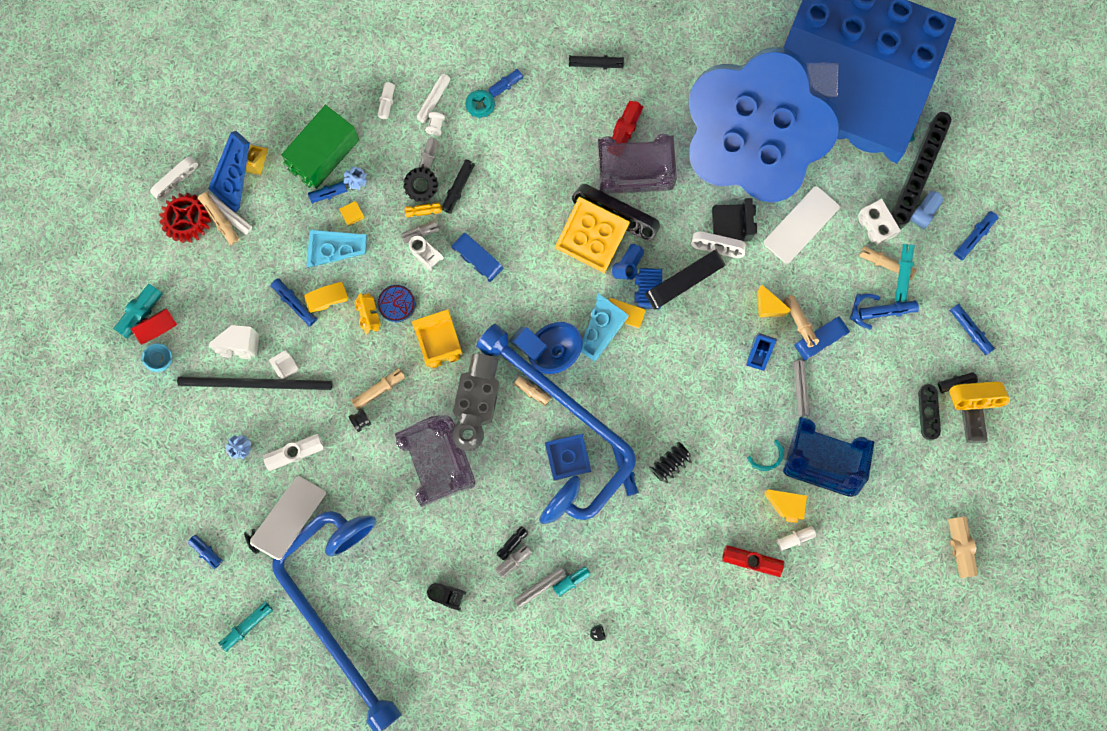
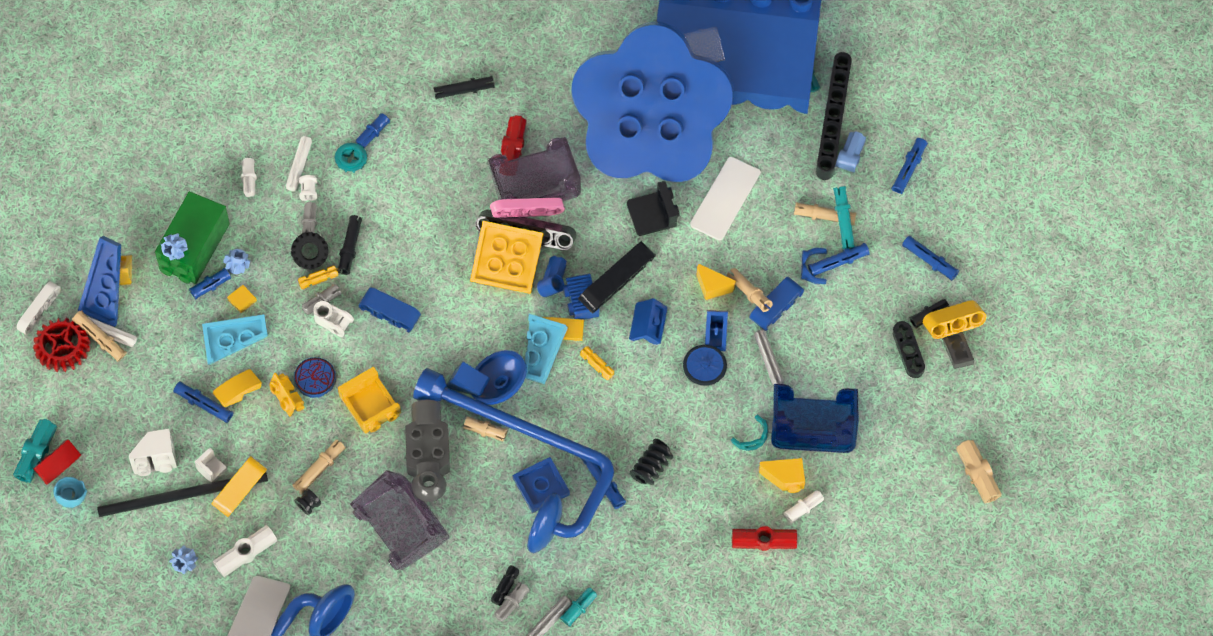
camera: 15 degrees left, 15 degrees down
(296, 156) = (174, 246): none -> light blue gear
(303, 392) = (239, 486): none -> yellow beam
(622, 192) = (527, 207): none -> bright pink beam
(647, 353) = (596, 362): none -> yellow axle
(702, 326) = (648, 321): none -> blue panel
(731, 247) = (628, 232): white beam -> none
(742, 380) = (704, 365): none -> blue wheel
(883, 220) = (808, 174): white brick -> none

